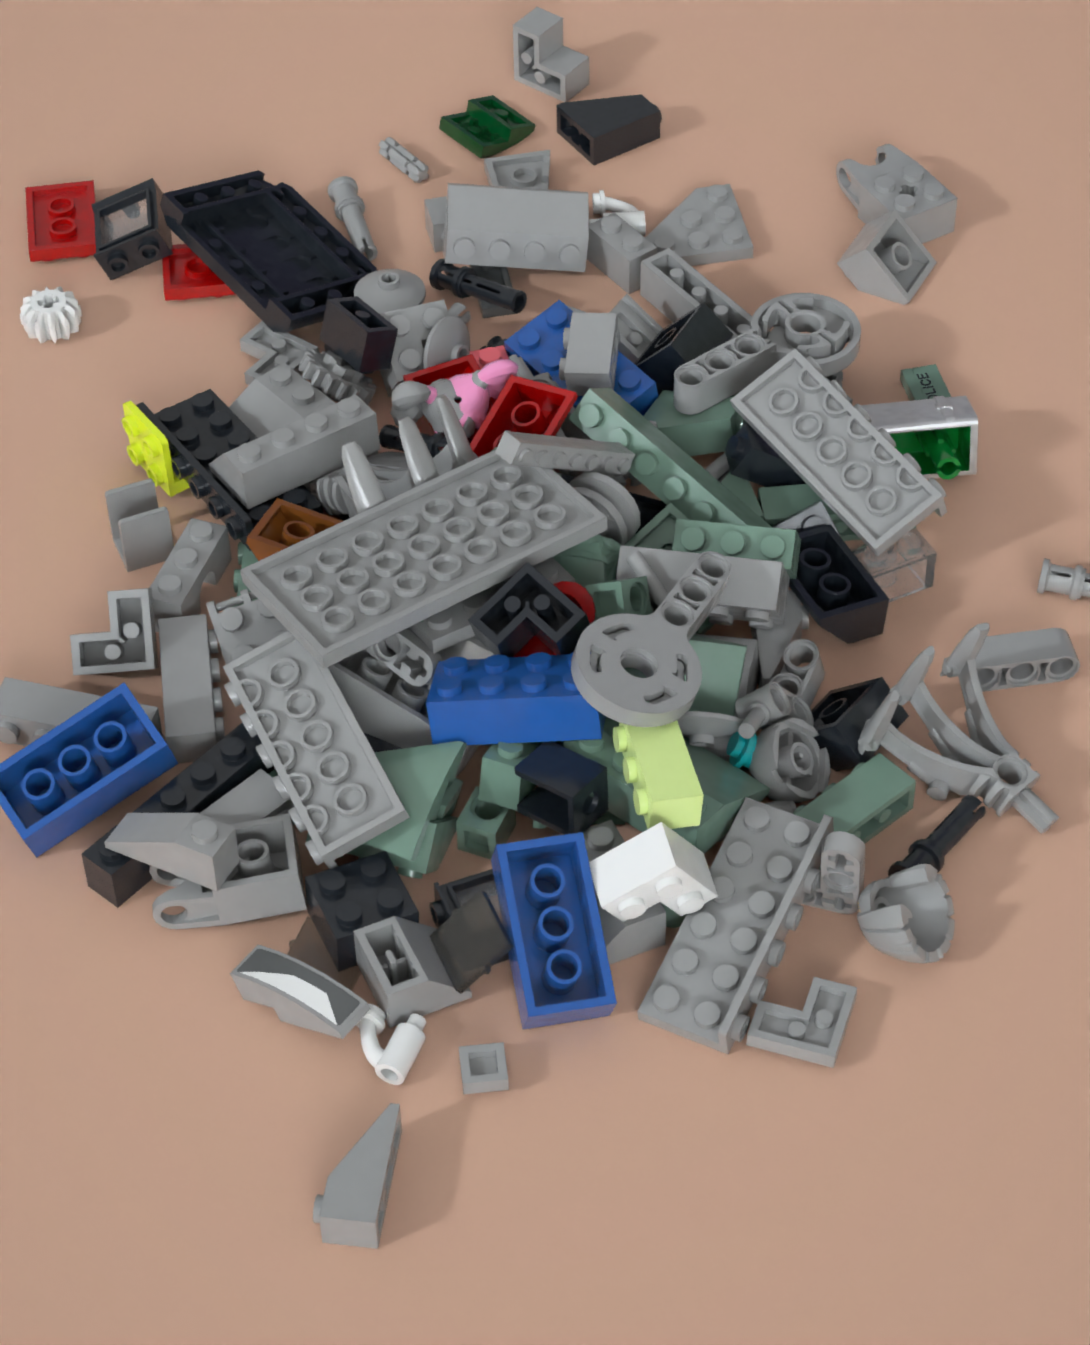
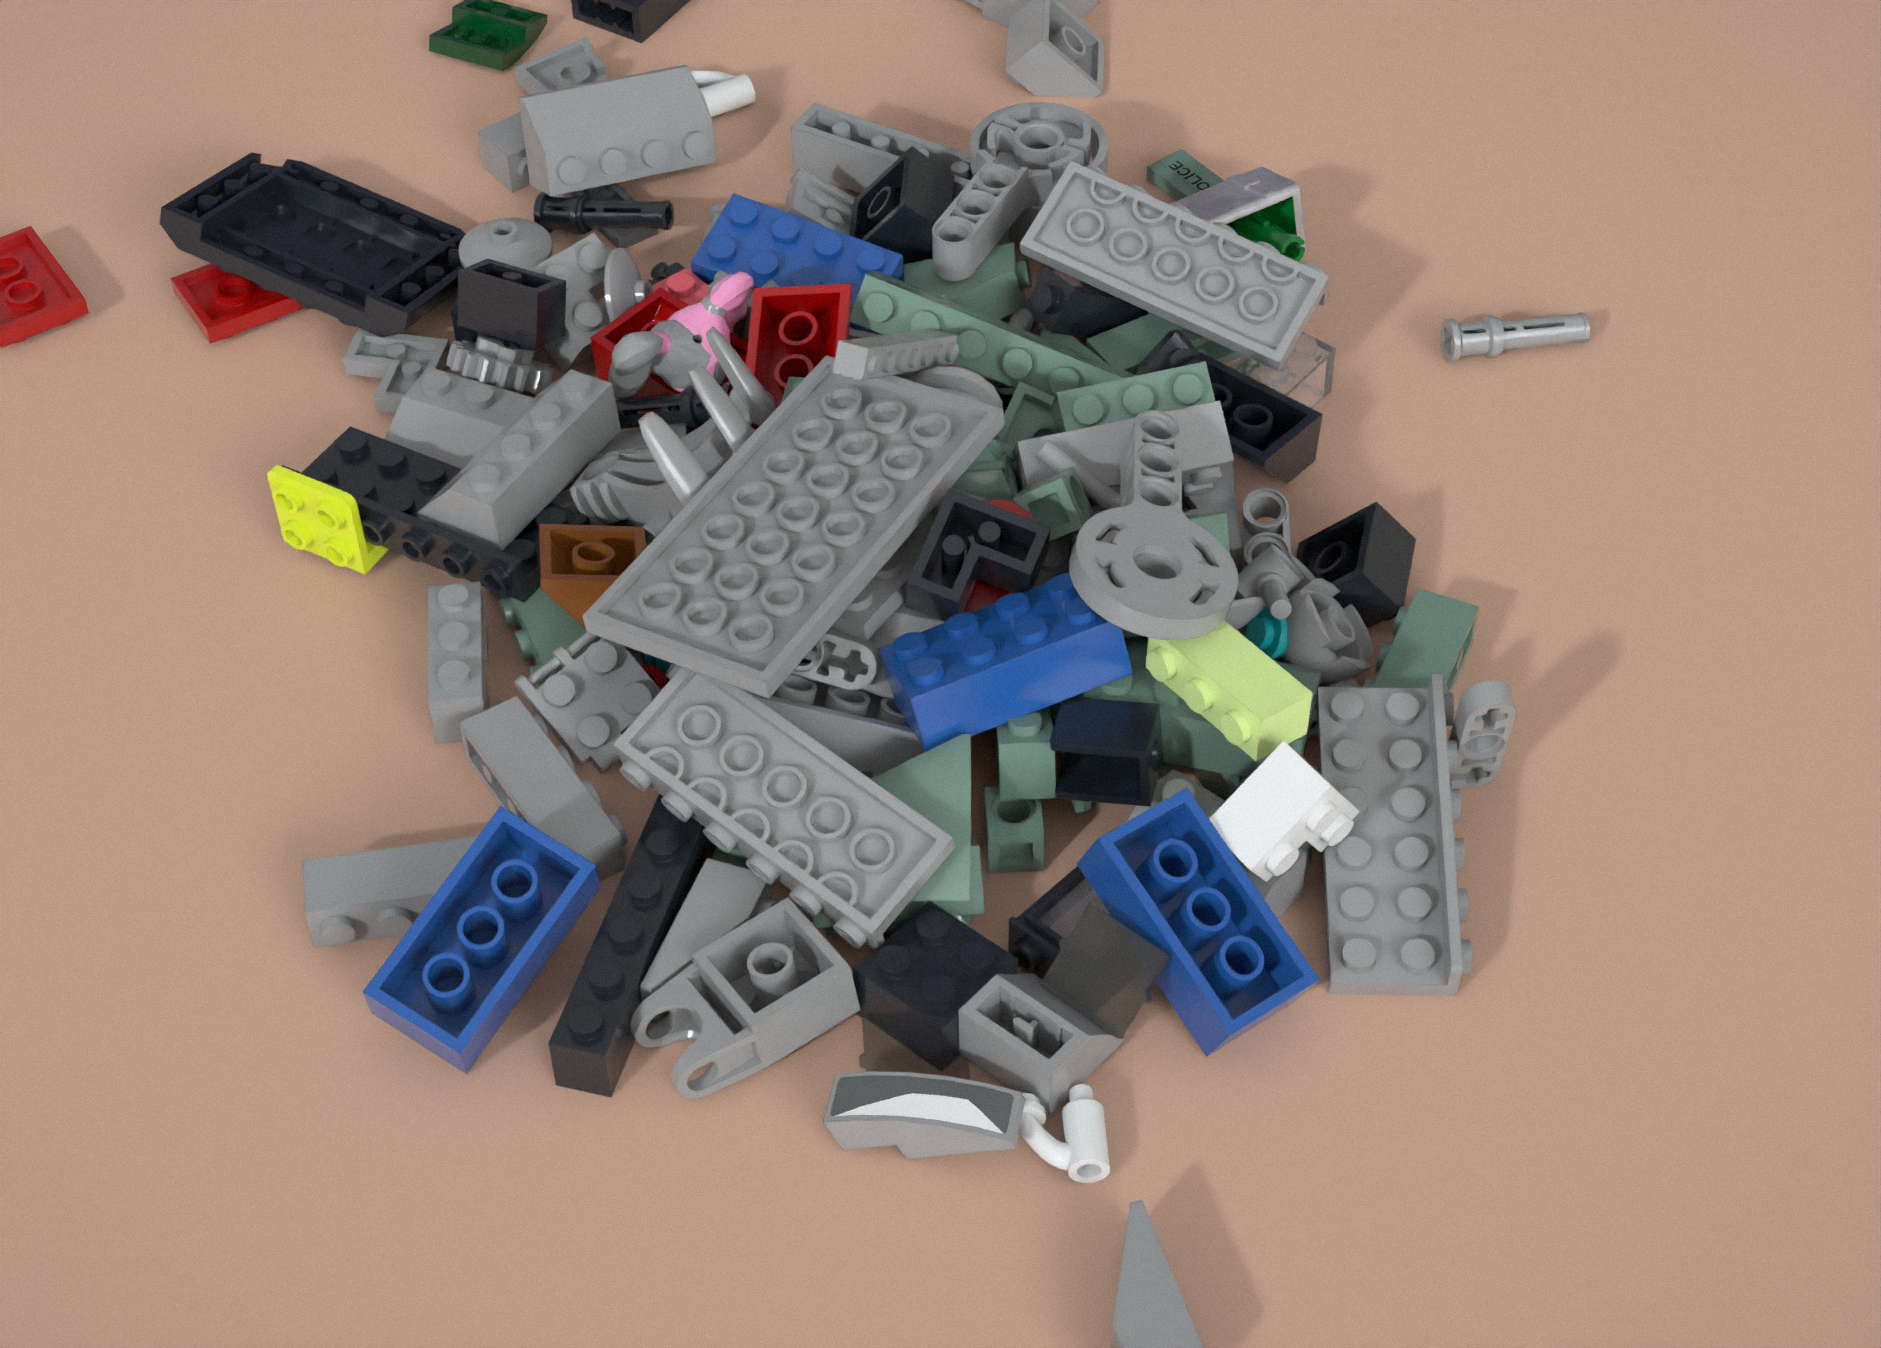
camera: 25 degrees left, 0 degrees up
(50, 314) = (73, 402): white gear -> none
(129, 643) = (437, 763): light grey brick -> none
(131, 230) = (122, 268): black window -> none
(138, 525) = (353, 627): light grey piece -> none
(179, 844) = (679, 982): light grey slope -> none
(350, 210) = (383, 171): light grey pin -> none
(403, 159) = (410, 97): light grey axle -> none
(483, 1068) = (1197, 1119): light grey plate -> none
(591, 352) = (817, 238): light grey brick -> none
(618, 251) = (751, 127): light grey brick -> none
(705, 228) = (823, 70): light grey plate -> none
(810, 1033) = (1537, 933): light grey plate -> none
(908, 915) = (1561, 763): light grey hair -> none
(943, 838) = (1533, 685): black pin -> none
(966, 764) = (1504, 557): light grey piece -> none
(1026, 659) = (1484, 439): light grey beam -> none

